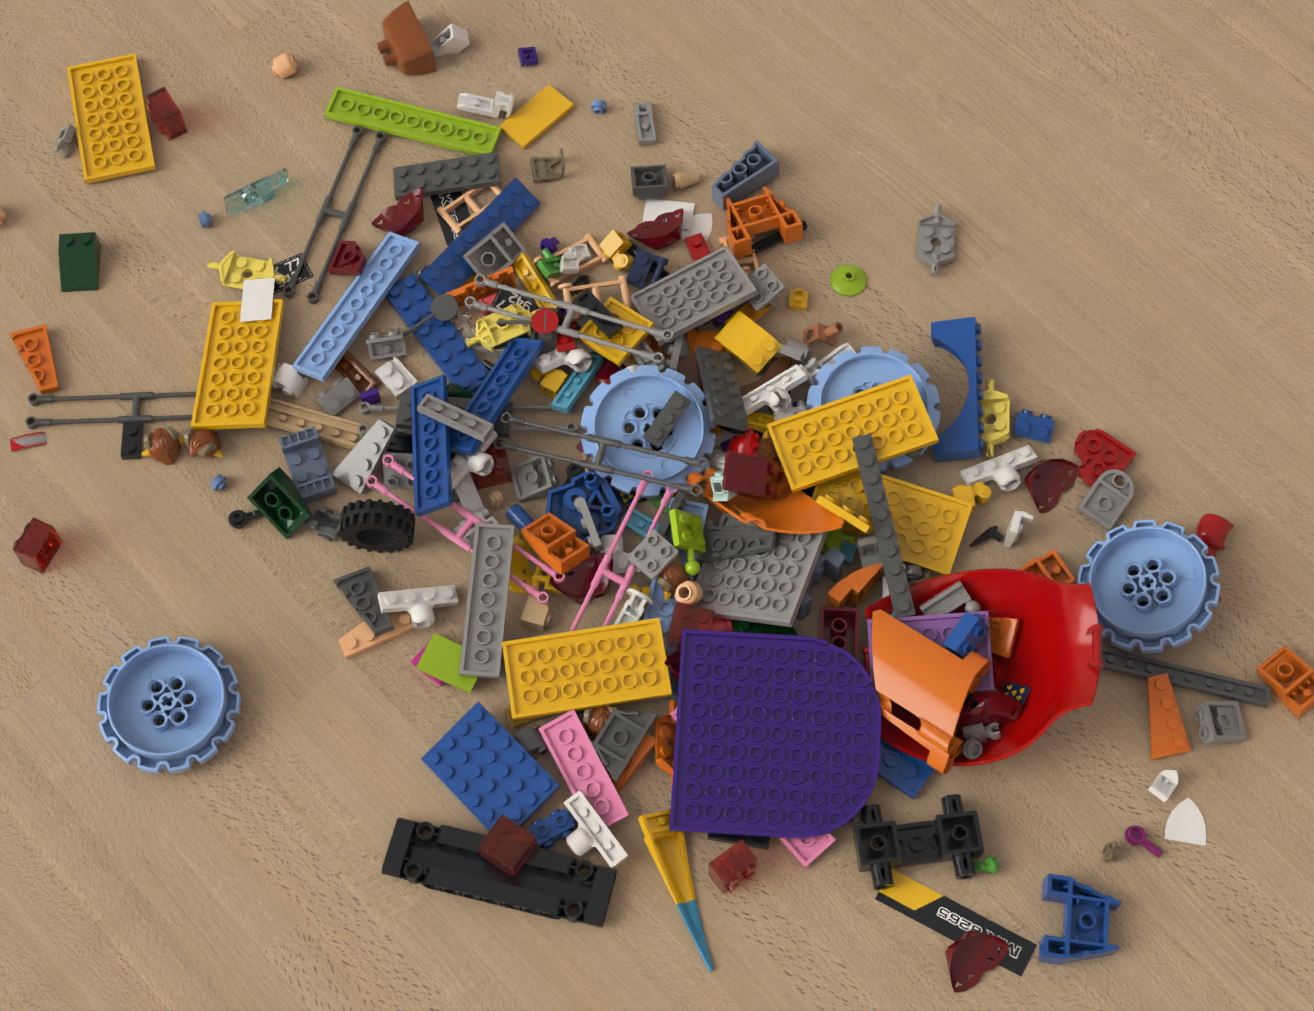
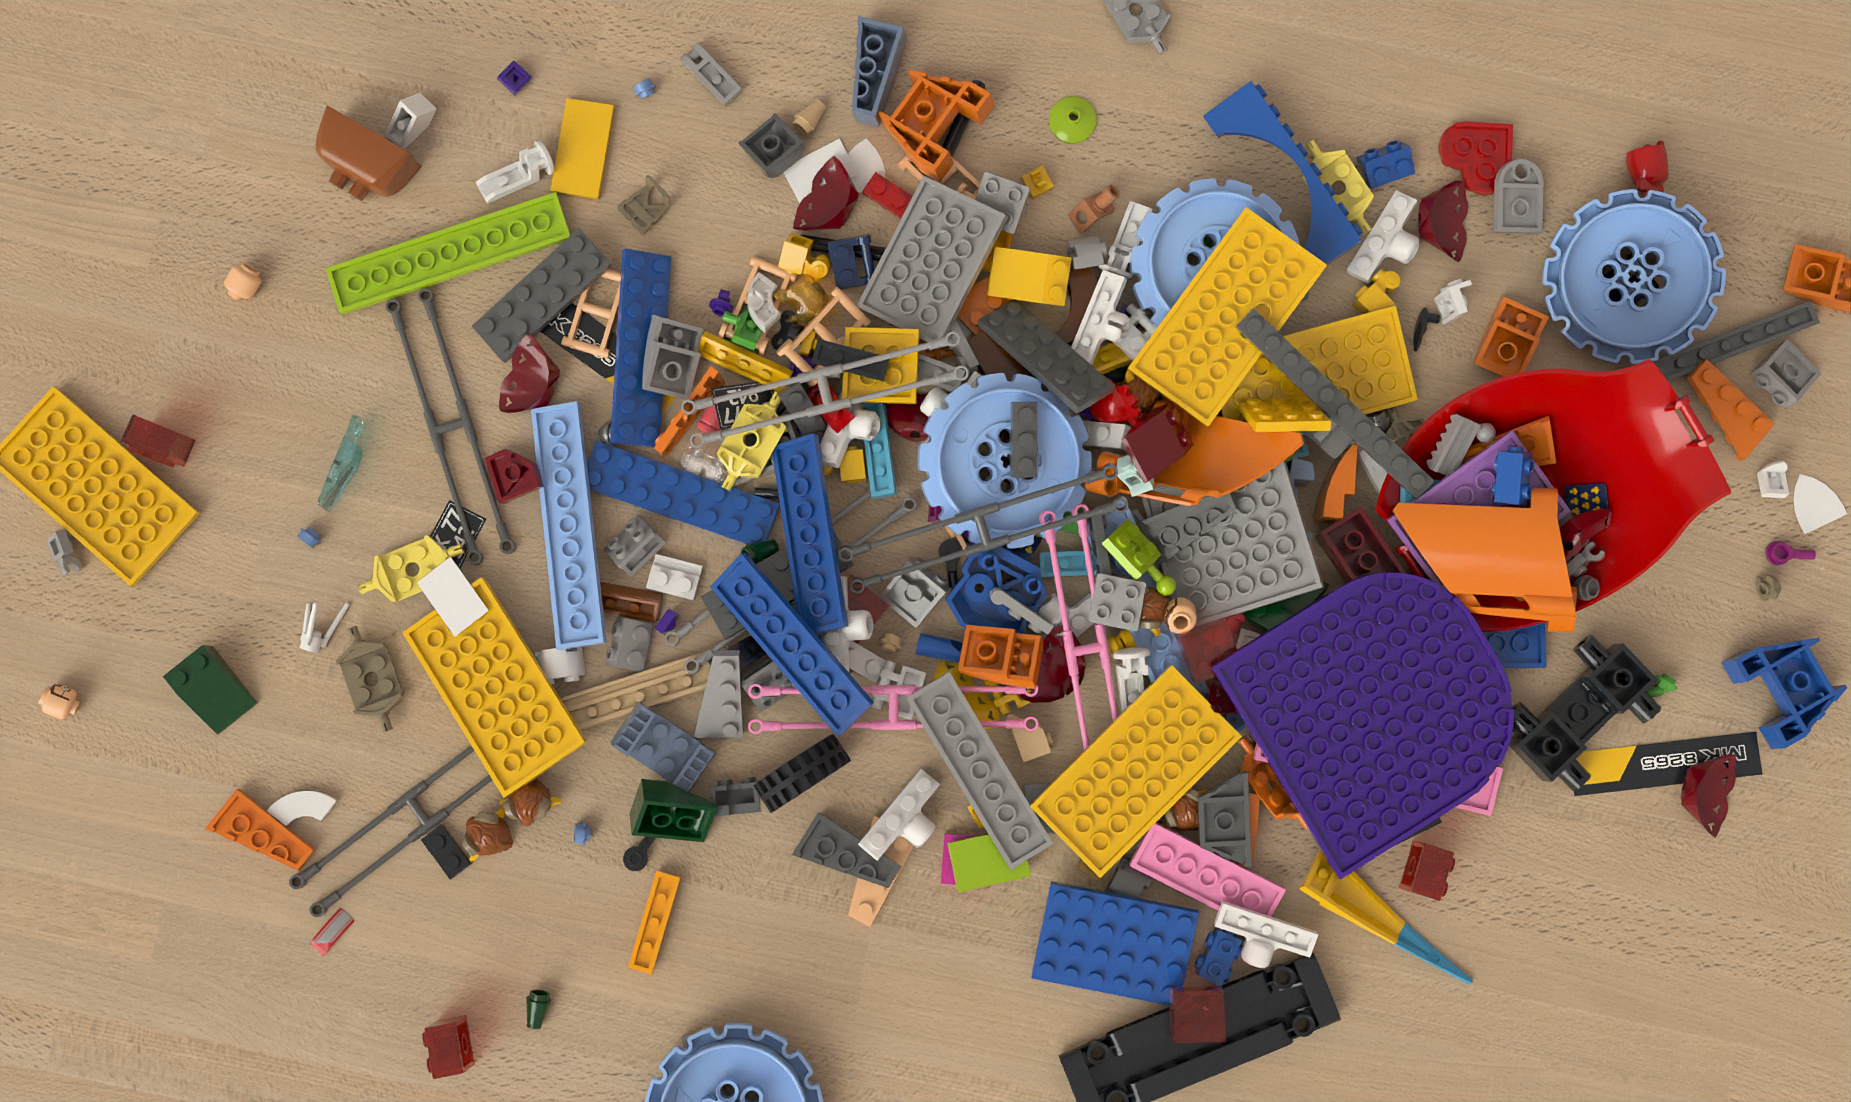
camera: 40 degrees left, 20 degrees up
(74, 359) = (302, 804): none -> white tile
(106, 564) = (536, 1007): none -> dark green cone
(157, 274) = (311, 639): none -> white plant
(173, 303) = (357, 664): none -> dark tan plate
(218, 563) = (654, 922): none -> light orange plate
(442, 307) = (667, 464): dark grey piece -> none
(455, 417) = (800, 600): light grey plate -> none
(543, 321) = (800, 412): red piece -> none
(601, 270) = (807, 299): none -> clear yellow piece

